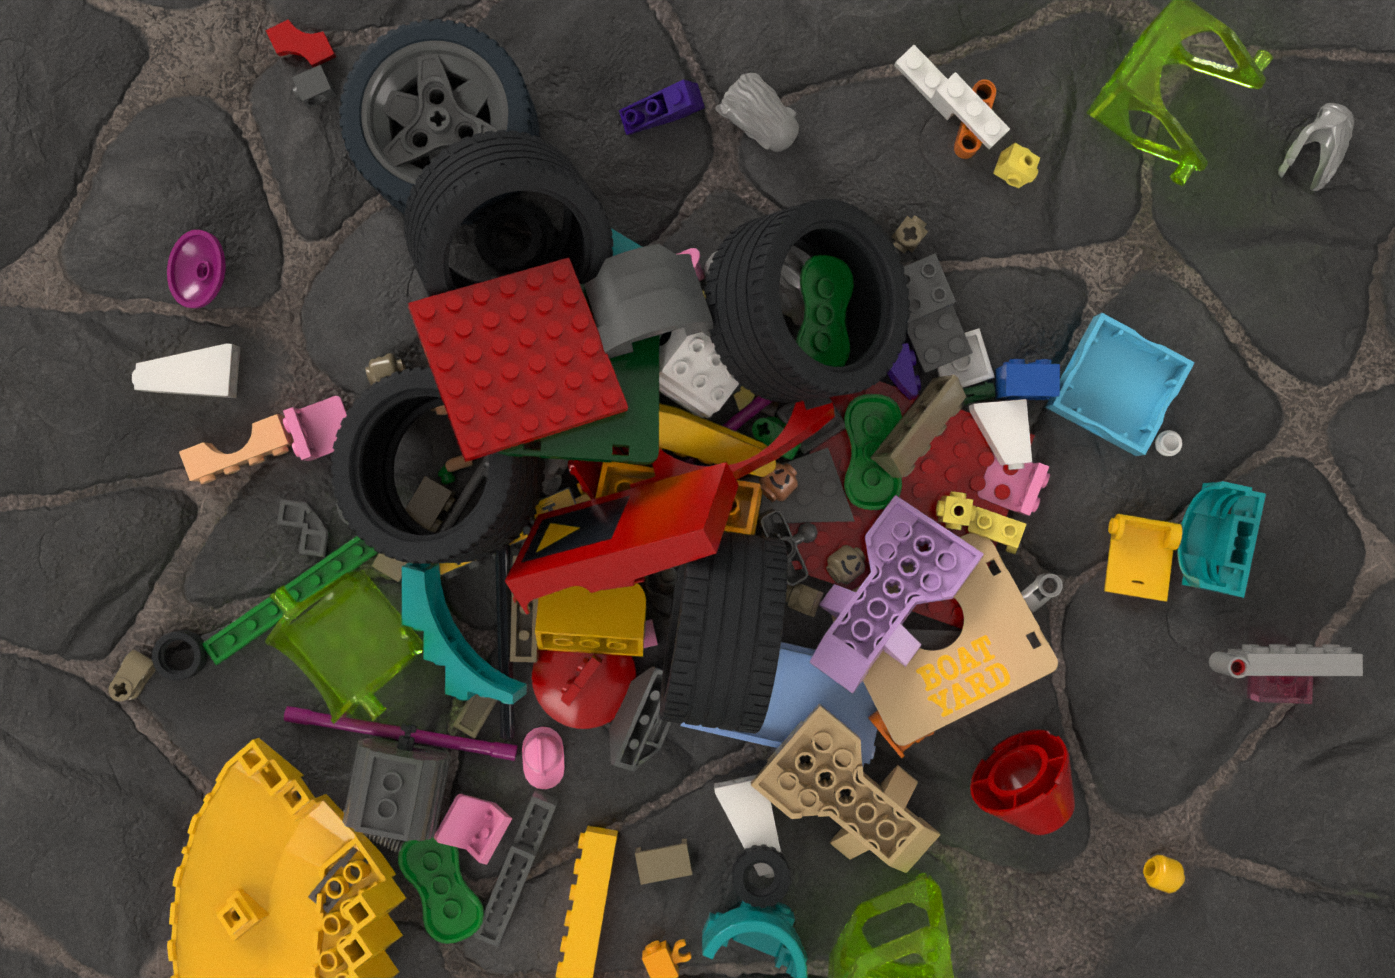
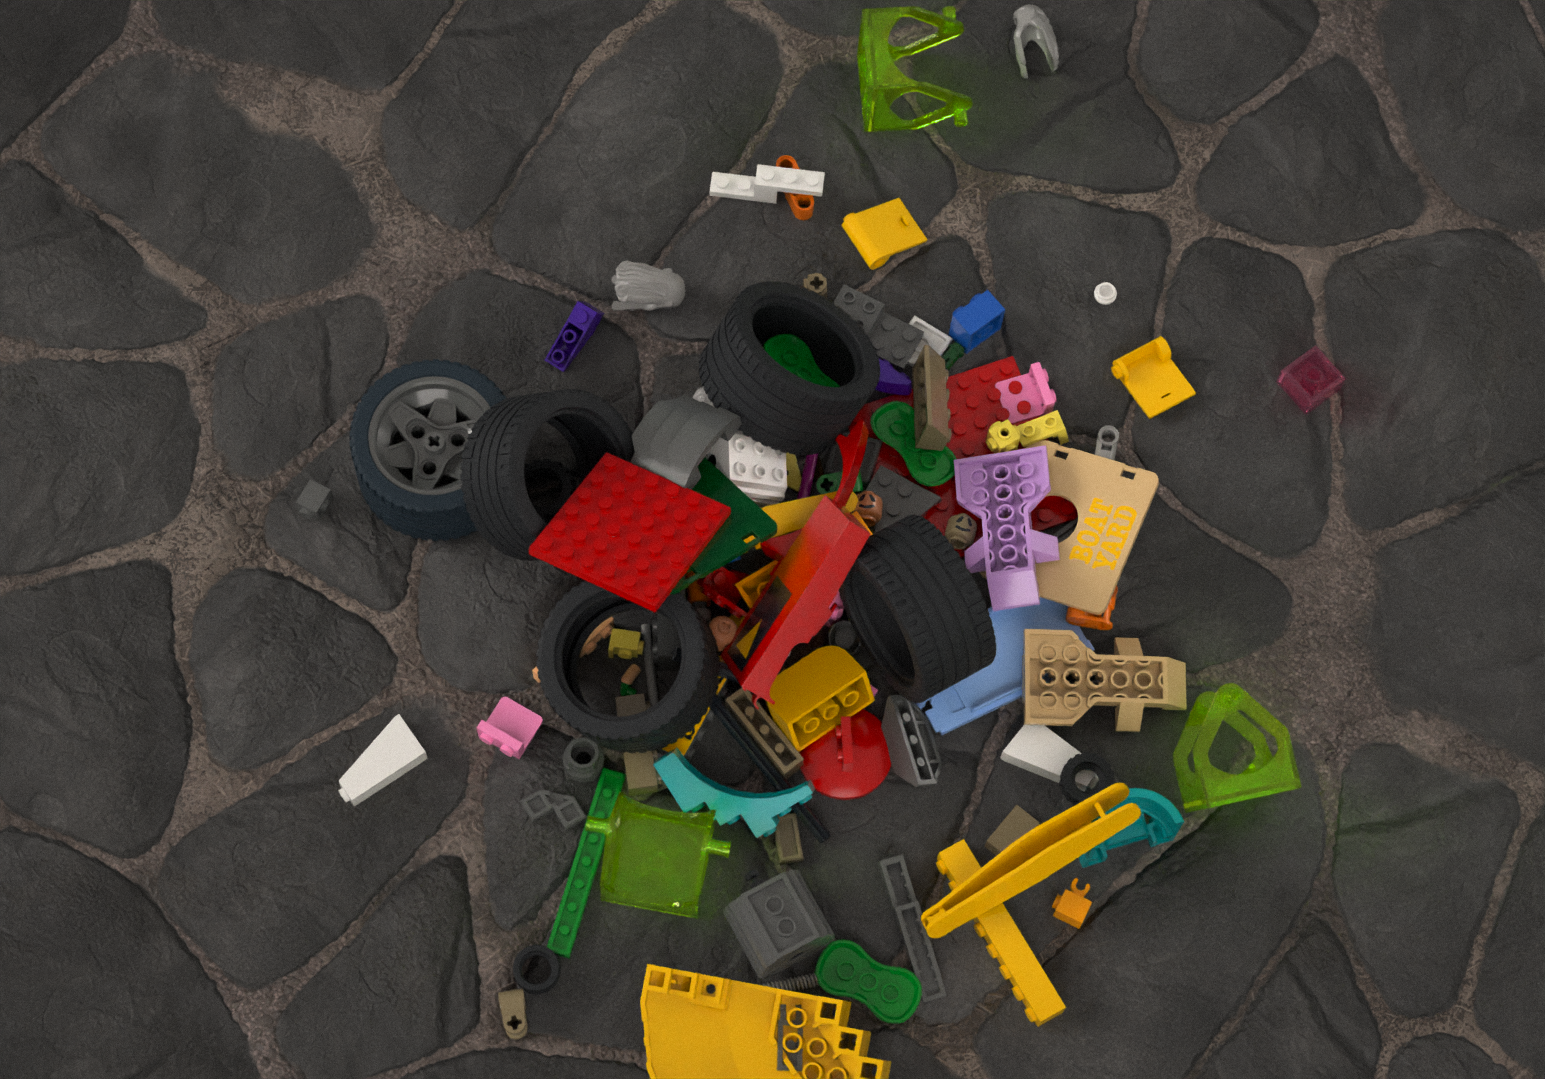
camera: 45 degrees left, 20 degrees down
(196, 269) = (318, 683): magenta dish -> none
(206, 461) = (444, 814): light nougat arch -> none
(289, 40) = (268, 484): red tile -> none
(383, 366) = (523, 653): dark tan head -> none
(473, 826) = (857, 916): bright pink bracket -> none
(494, 749) = (669, 940): magenta piece -> none
(543, 758) = (864, 835): bright pink piece -> none
(555, 495) = (723, 631): none -> nougat head
(648, 920) = (1033, 858): none -> yellow piece
(1005, 430) = (989, 363): white slope -> none
(1017, 165) = (848, 194): light yellow brick -> none
(1019, 225) = (882, 232): none -> yellow door
(1027, 782) = (1211, 573): red cone -> none
(1120, 384) = (1039, 280): medium azure tile -> none
(1164, 873) = (1356, 569): yellow head -> none
(1220, 538) = (1194, 329): teal piece -> none
(1288, 661) = (1301, 358): light grey hinge -> none

